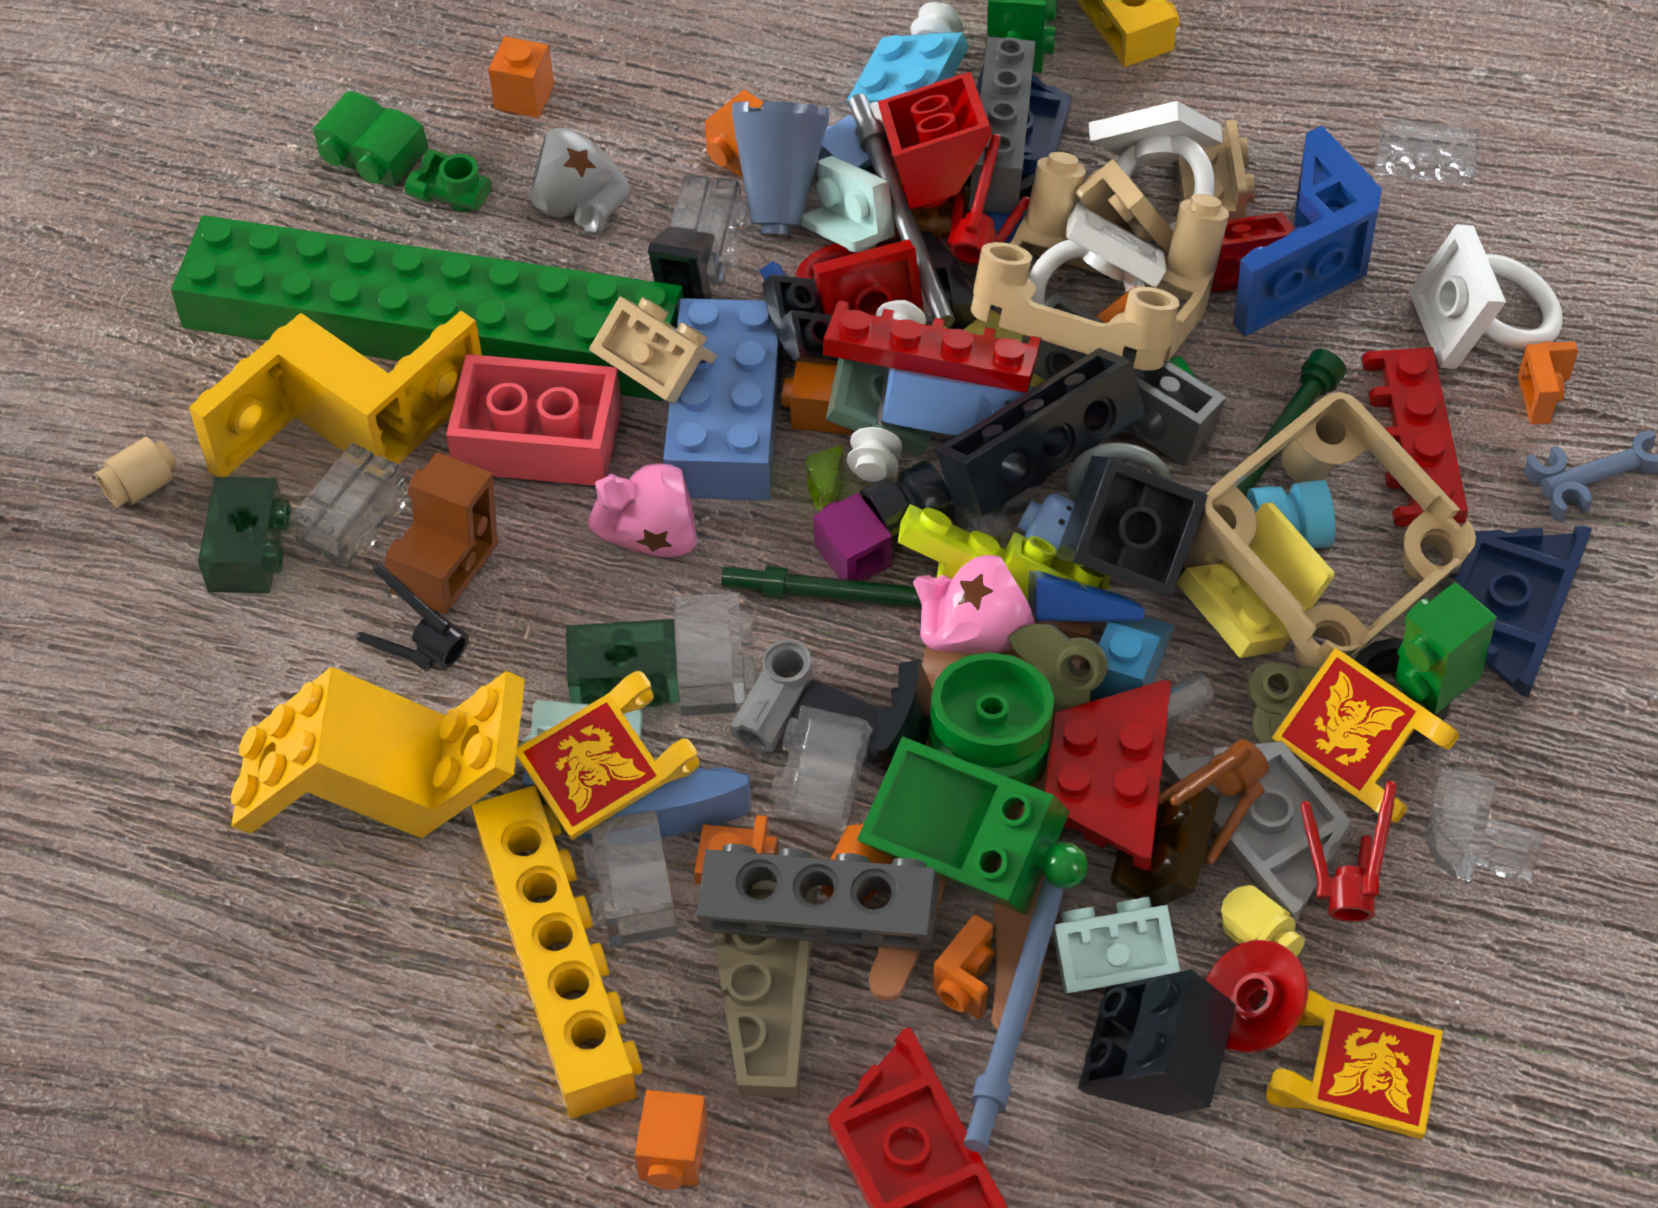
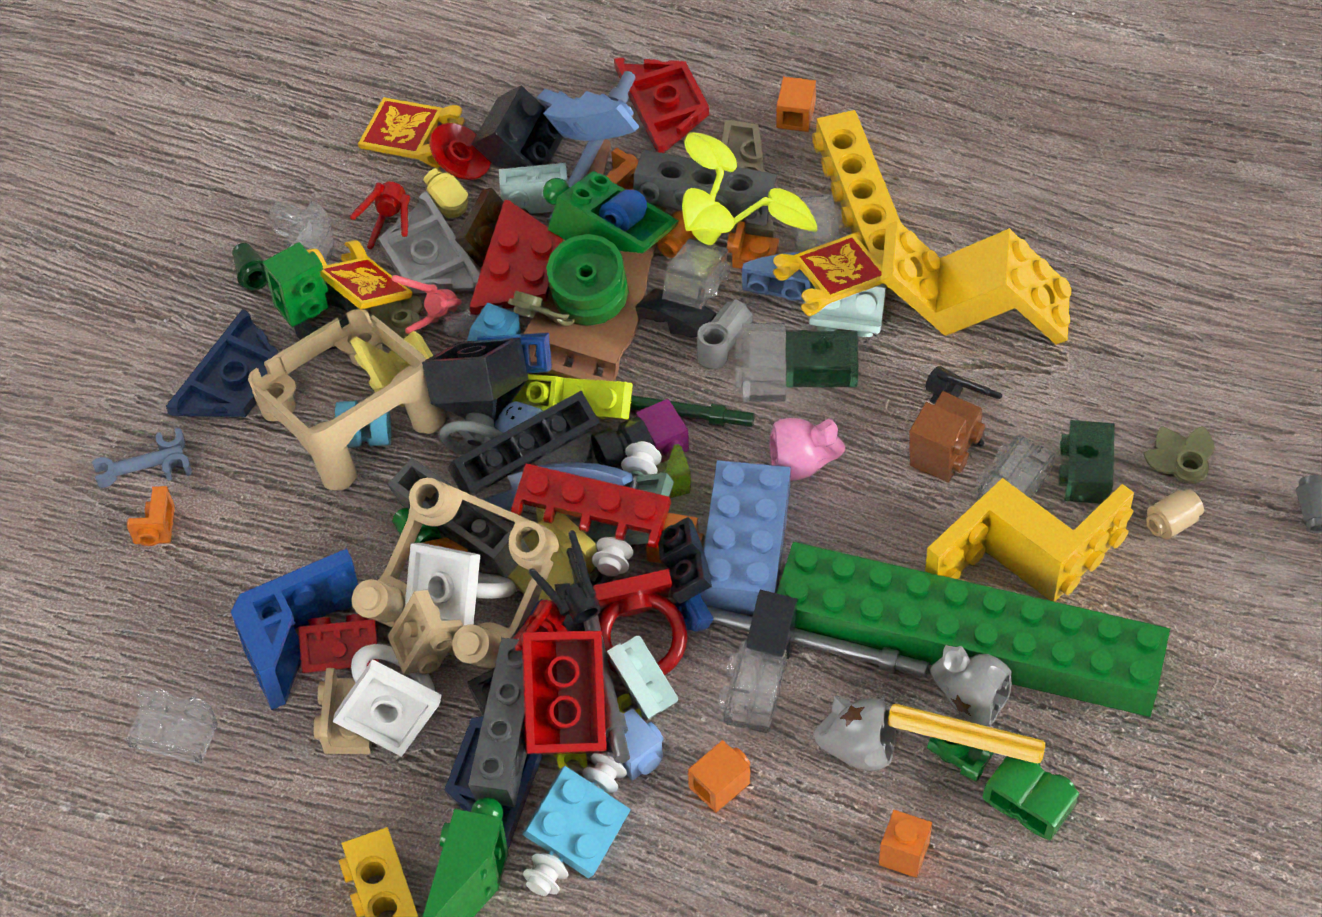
camera: 175 degrees left, 0 degrees up
(111, 574) = (1176, 453): none -> olive plate
(428, 221) = (973, 685): none -> light grey piece
(442, 155) = (966, 733): none -> yellow axle
(536, 419) = (883, 518): coral brick -> none
(650, 348) = (793, 529): tan bracket -> none
(778, 159) = (688, 723): sand blue cone -> none
(814, 879) = (710, 218): none -> neon yellow plant
(906, 717) = (647, 280): black slope -> none
(932, 237) = (580, 597): none -> black plant
(947, 821) = (624, 209): none -> blue brick
(973, 609) = (585, 343): bright pink piece -> none
(1034, 1005) = (587, 117): none -> medium blue slope
(1226, 714) = (436, 302): none -> coral plant
(1231, 773) = (442, 251): dark orange plant -> none
(1319, 375) = (311, 538): dark green piece -> none
(1418, 422) = (254, 496): red hinge -> none
(1461, 298) = (196, 570): white tile -> none
(1547, 769) = (249, 267): none -> dark green cone

